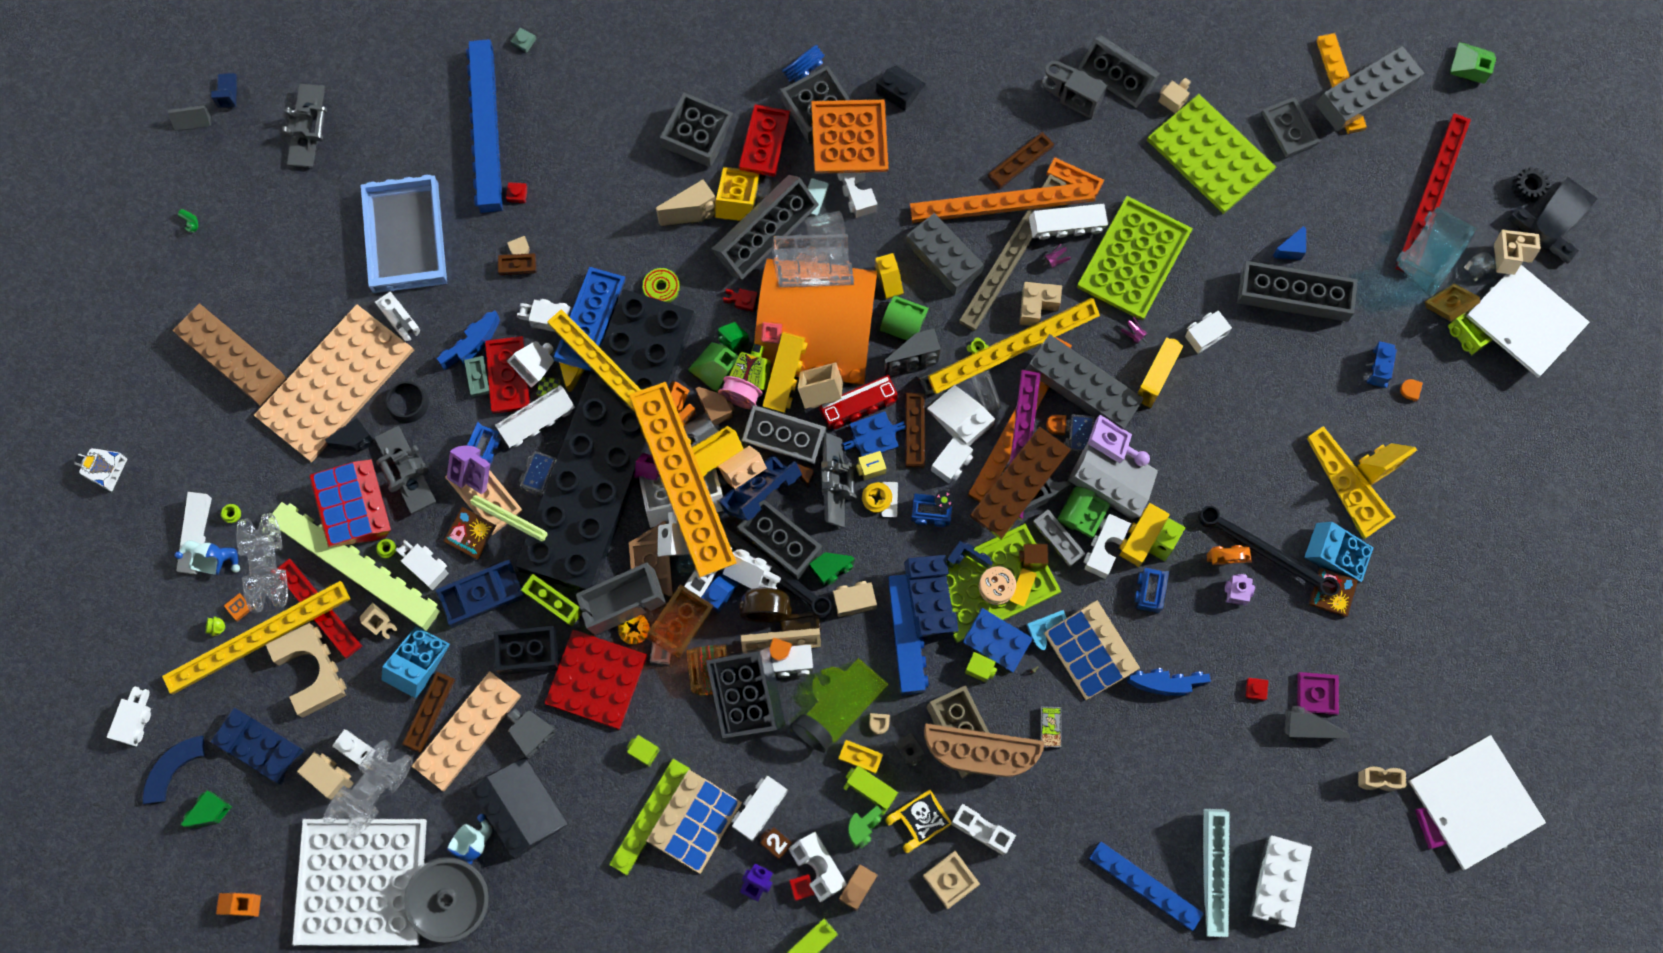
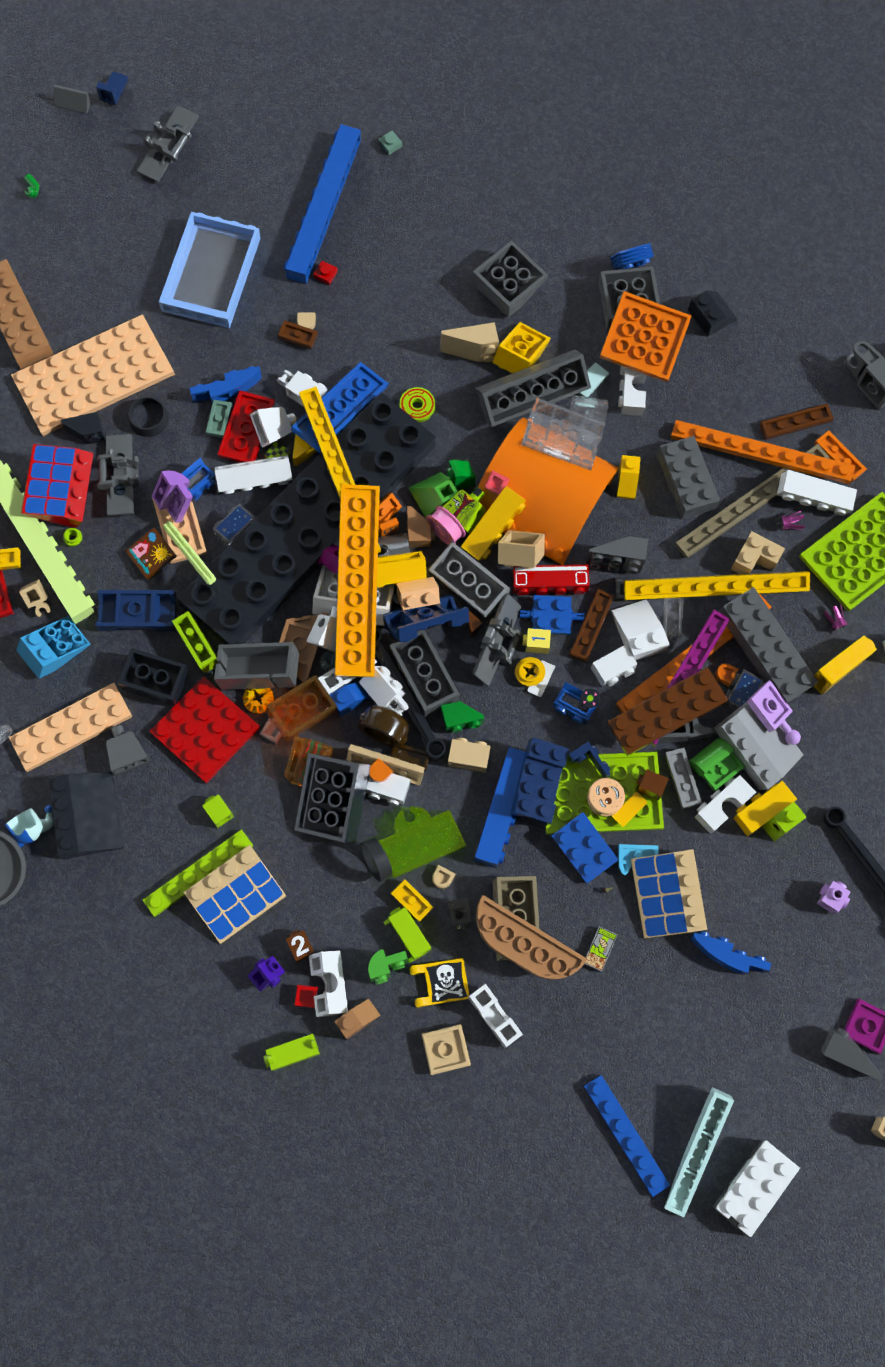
camera: 20 degrees right, 0 degrees up
(397, 316) = (172, 338): white plate -> none
(422, 564) = (97, 564): white brick -> none
(428, 712) = (45, 696): reddish brown tile -> none
(743, 299) = (485, 446): red plate -> none
(759, 808) = (299, 907): white brick -> none
(764, 140) = (567, 312): red plate -> none
(903, 318) = (624, 519): bright green brick -> none
(976, 343) = (684, 569): lime plate -> none
(981, 667) = (558, 866): lime brick -> none
(1152, 590) = (750, 862): blue window -> none
(1232, 555) = (842, 862): orange slope -> none
(1257, 689) = (811, 997): red plate -> none

